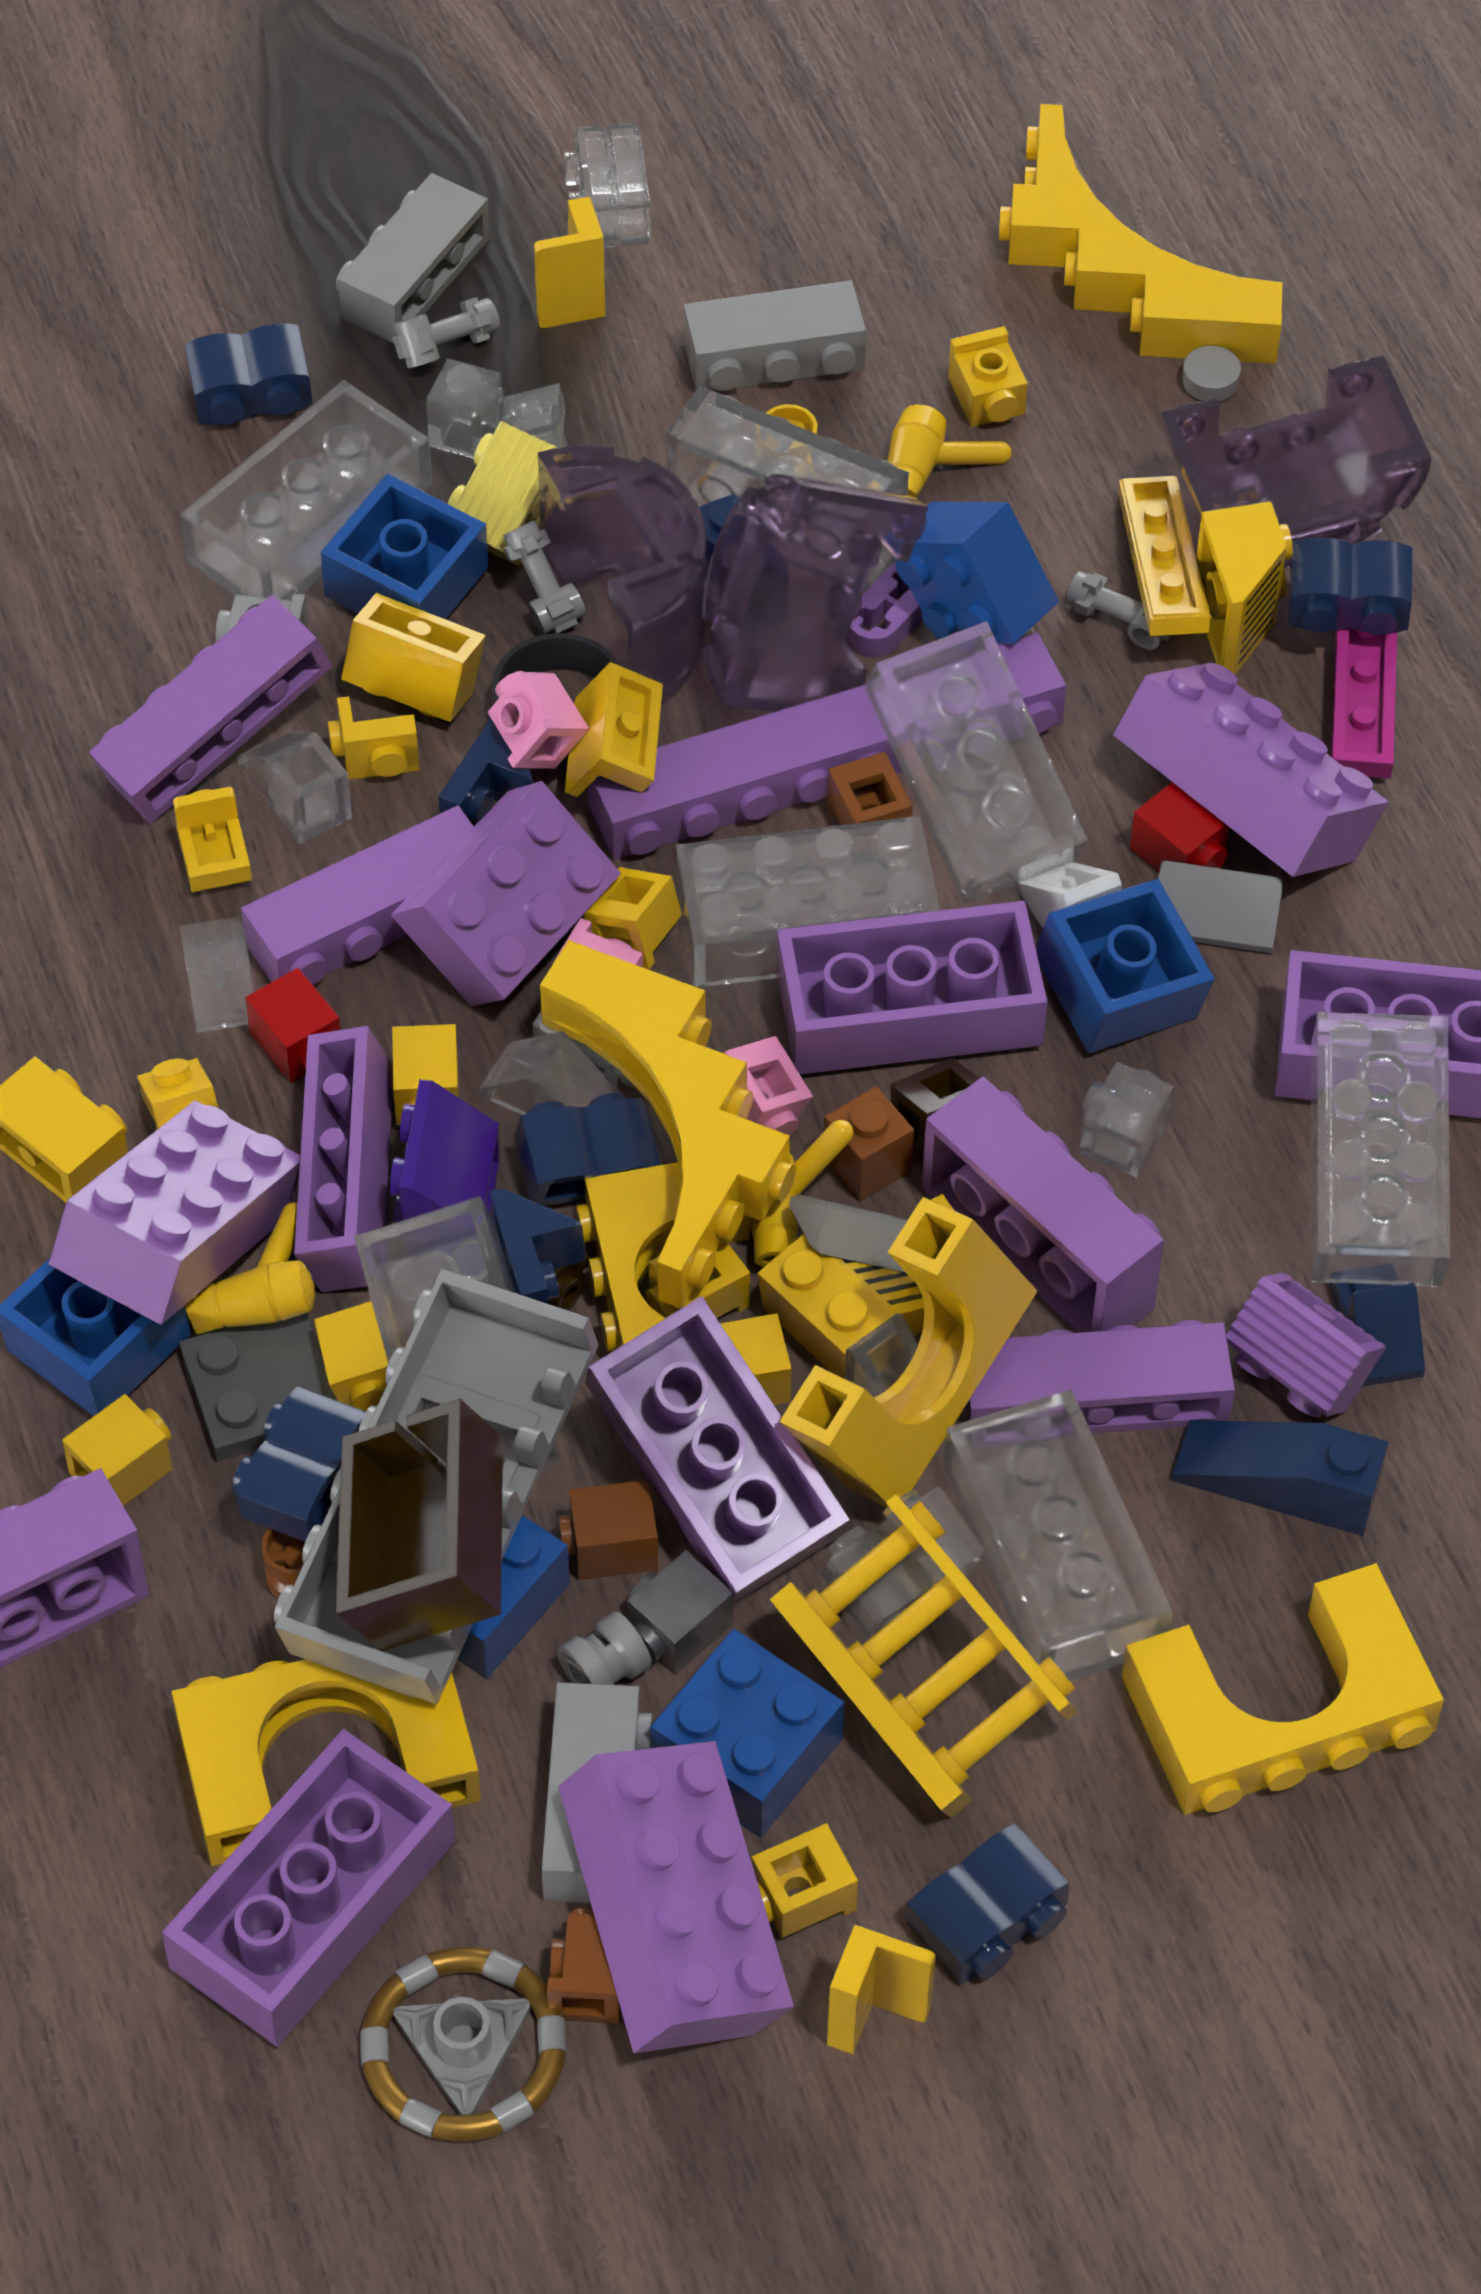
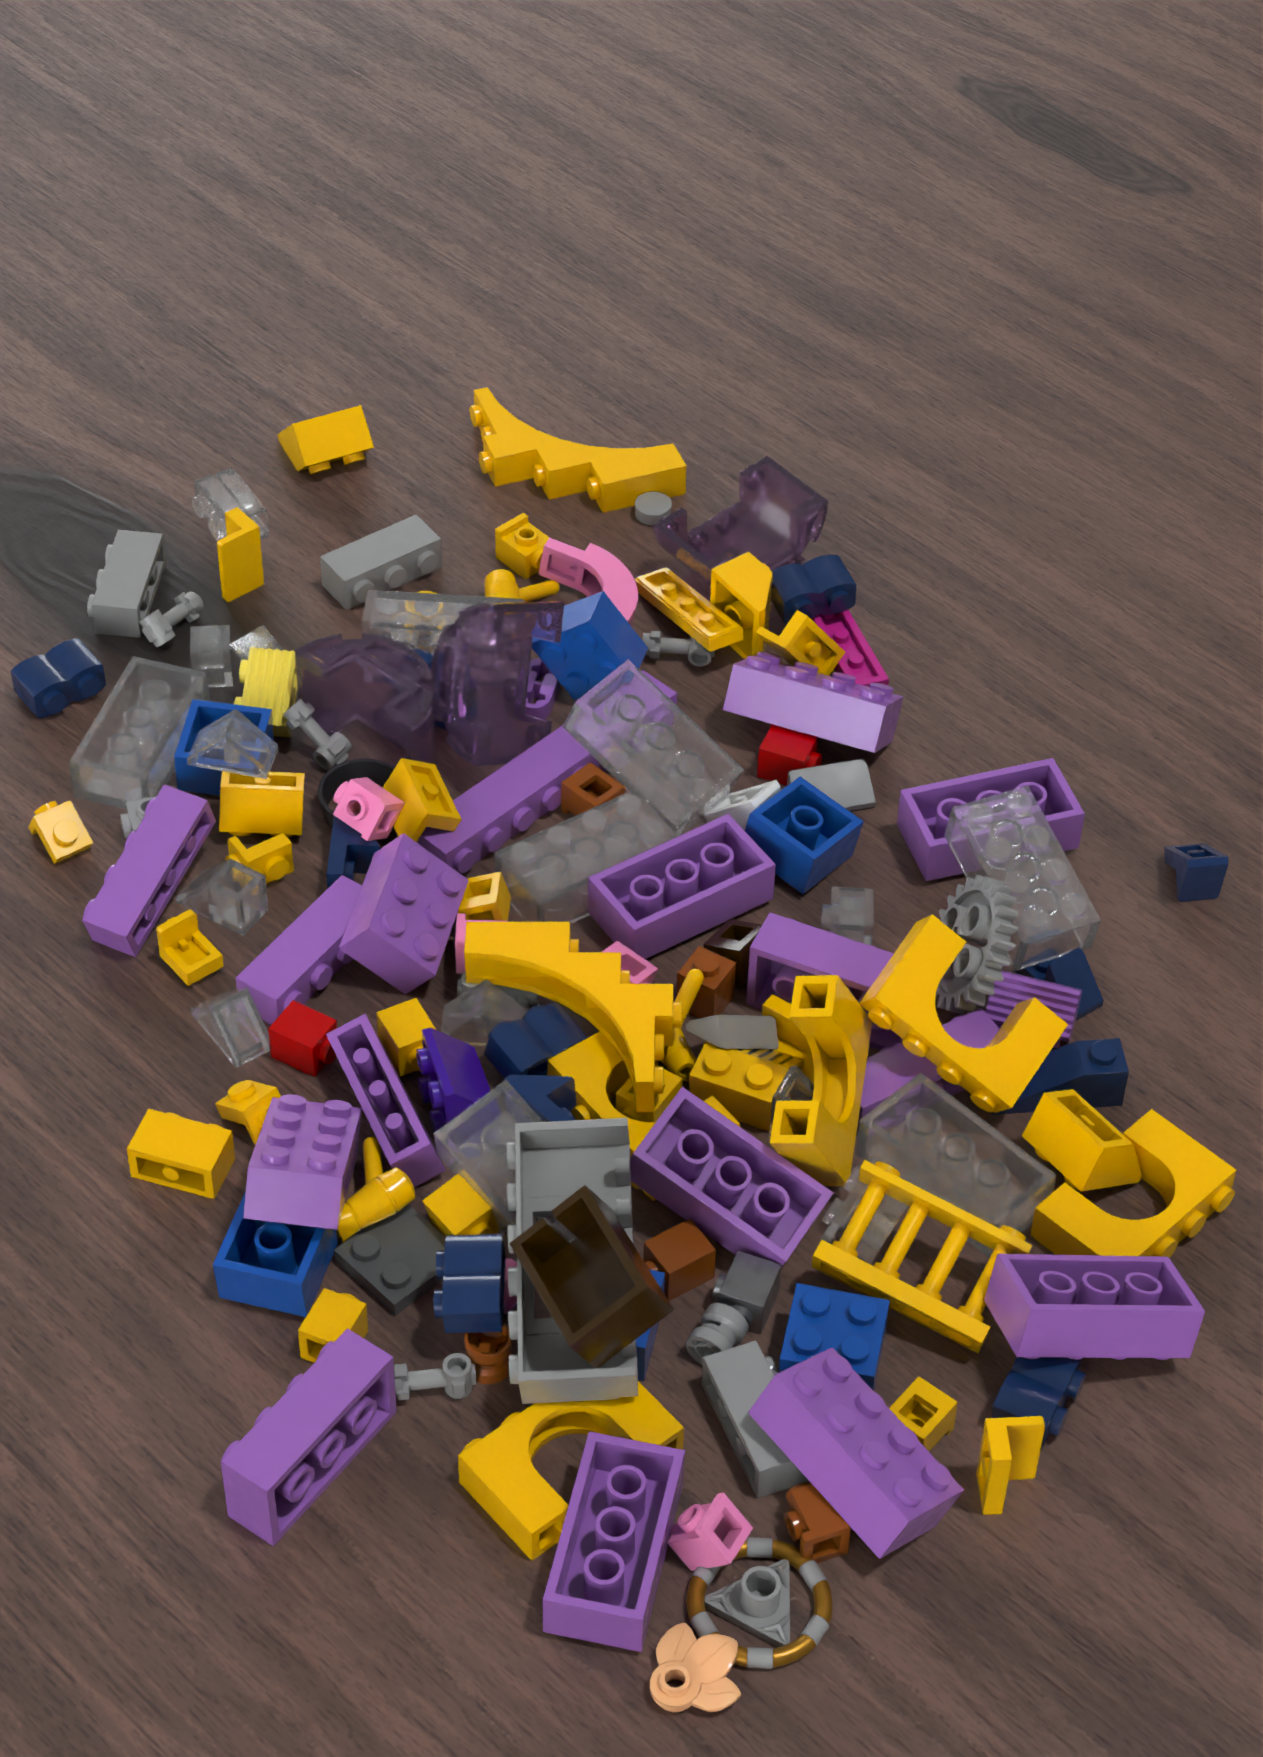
camera: 25 degrees left, 10 degrees down
(138, 605) = (60, 830): none -> yellow bracket
(236, 1572) = (456, 1377): none -> light grey bar
(335, 2098) = (700, 1665): none -> light nougat plate
(400, 569) = (234, 747): none -> clear slope
(430, 1917) = (702, 1527): none -> bright pink brick
(799, 119) = (327, 439): none -> yellow slope
(1067, 466) = (591, 573): none -> bright pink arch
(1114, 1821) = (1093, 1306): none -> medium lavender brick
(1182, 1424) = (905, 1003): none -> yellow arch
(1244, 1577) = (1081, 1143): none -> yellow slope
(1268, 1189) = (981, 917): none -> light grey gear
(1286, 676) = (804, 642): none -> yellow panel

